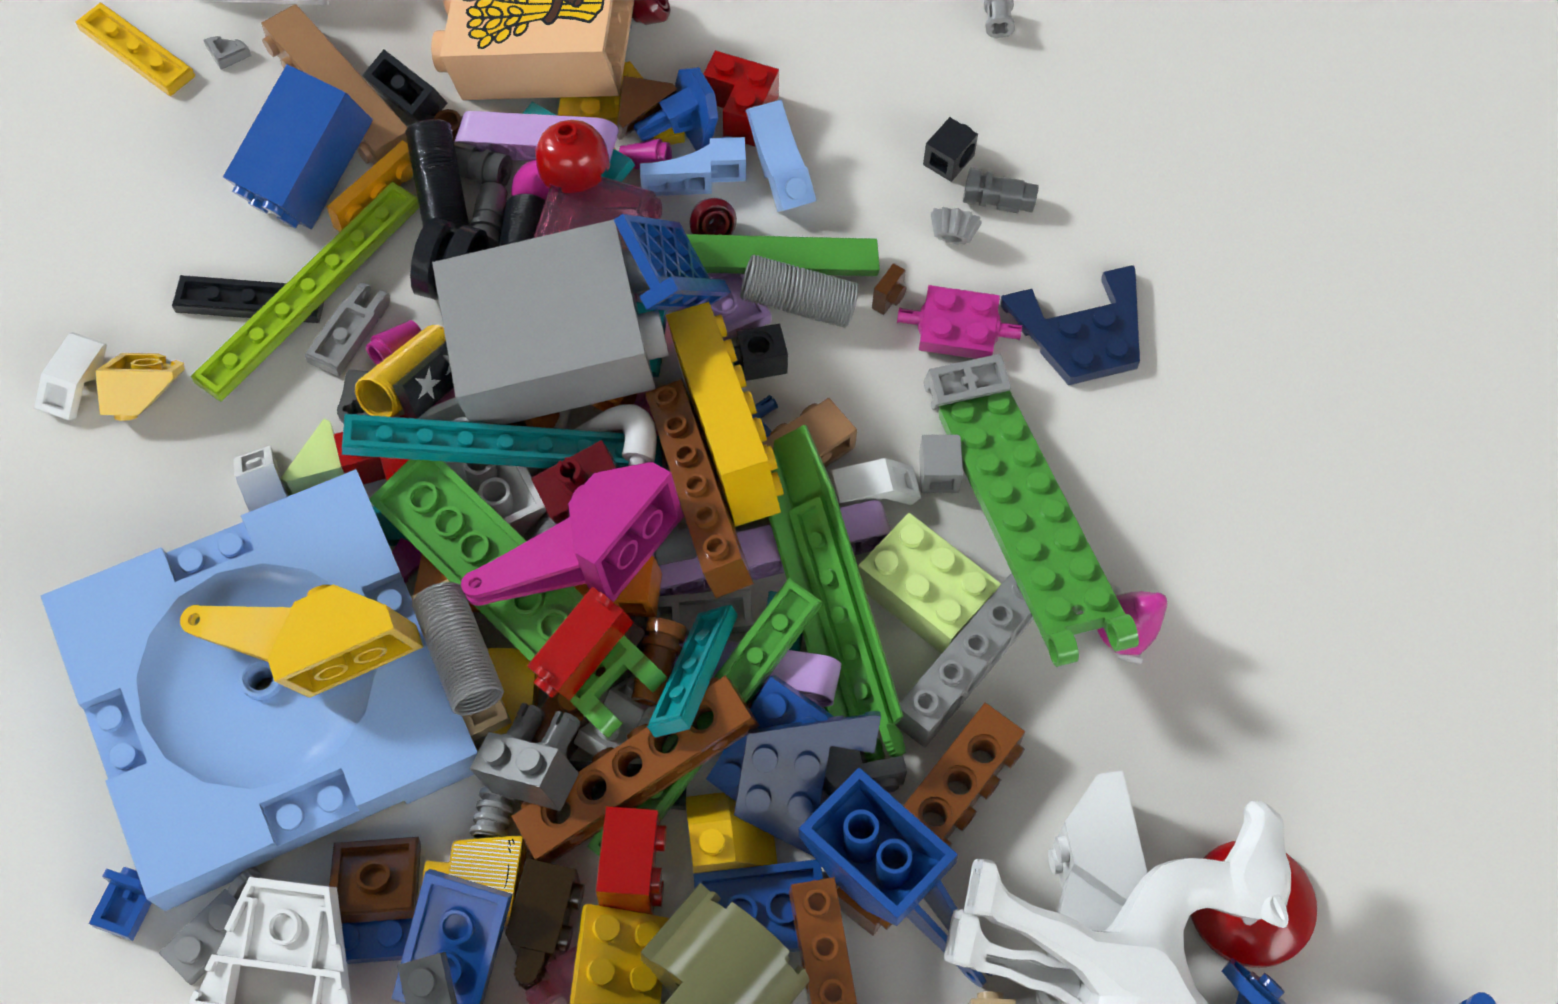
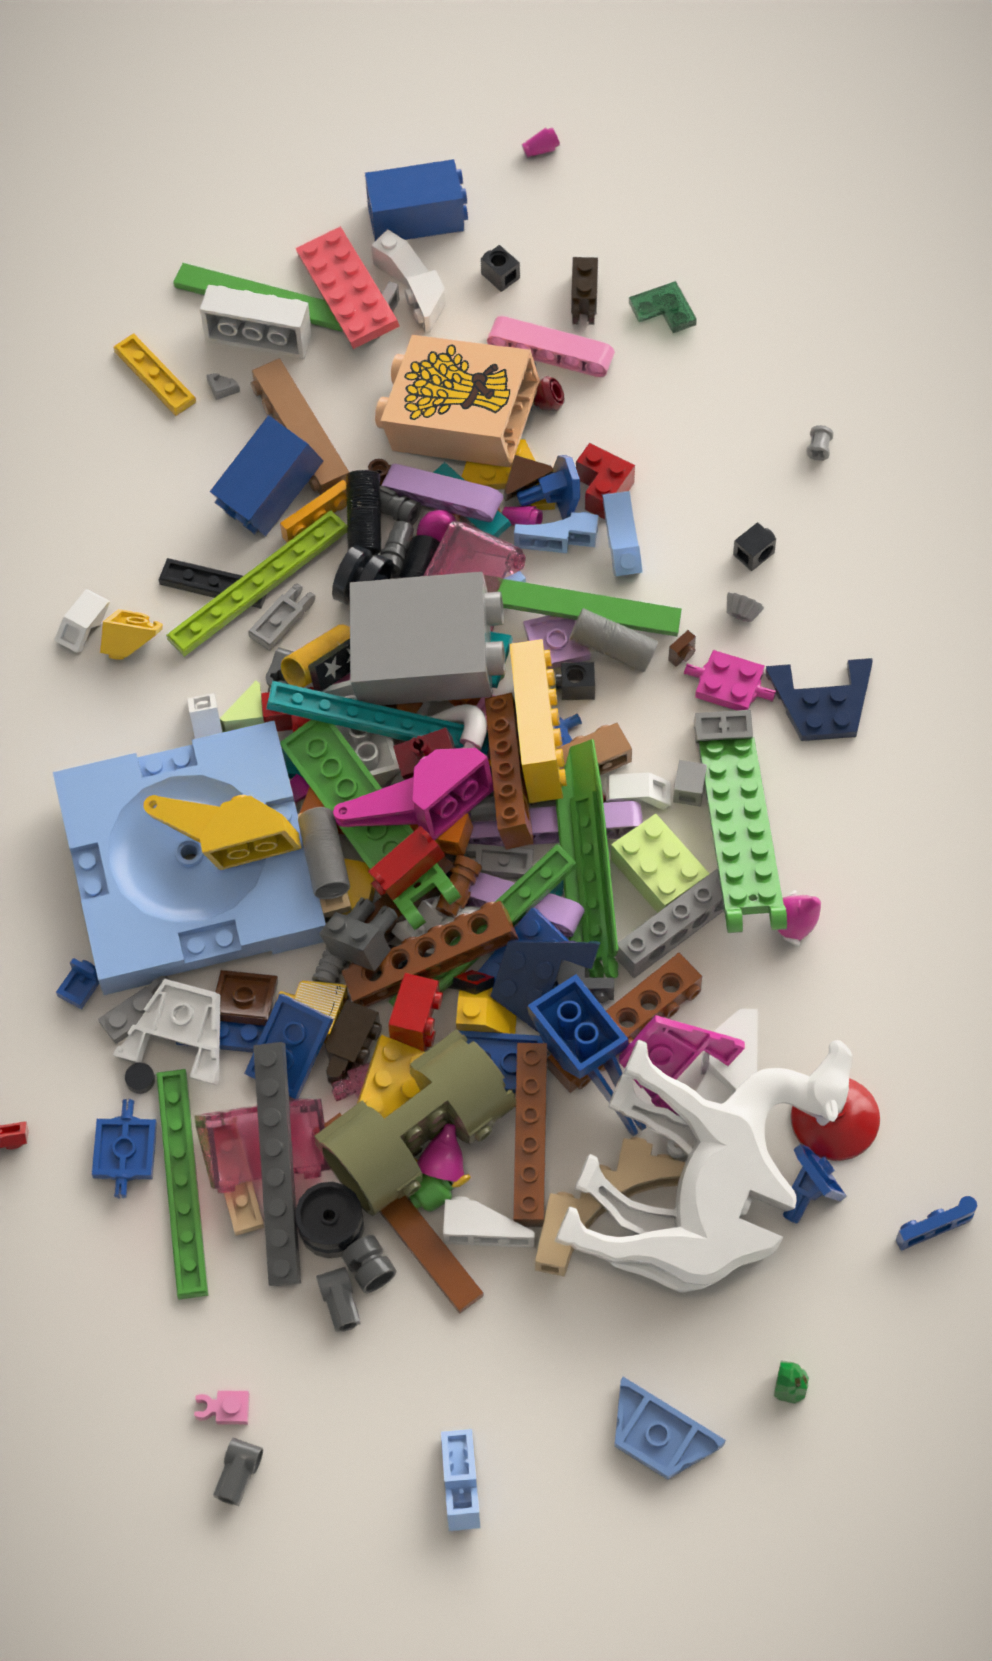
camera: 15 degrees right, 0 degrees up
(389, 341) = (309, 631): dark pink cone -> none
(404, 87) = (350, 438): black brick -> none
(571, 156) = (463, 515): red cylinder -> none
(668, 264) = (517, 608): blue fence -> none
(692, 671) = (480, 894): teal tile -> none
(704, 796) = (473, 982): none -> black tile
(713, 217) = (562, 574): dark red cone -> none
(1004, 192) = (787, 586): dark grey axle -> none
(1029, 851) = (676, 1045): none -> dark pink wing

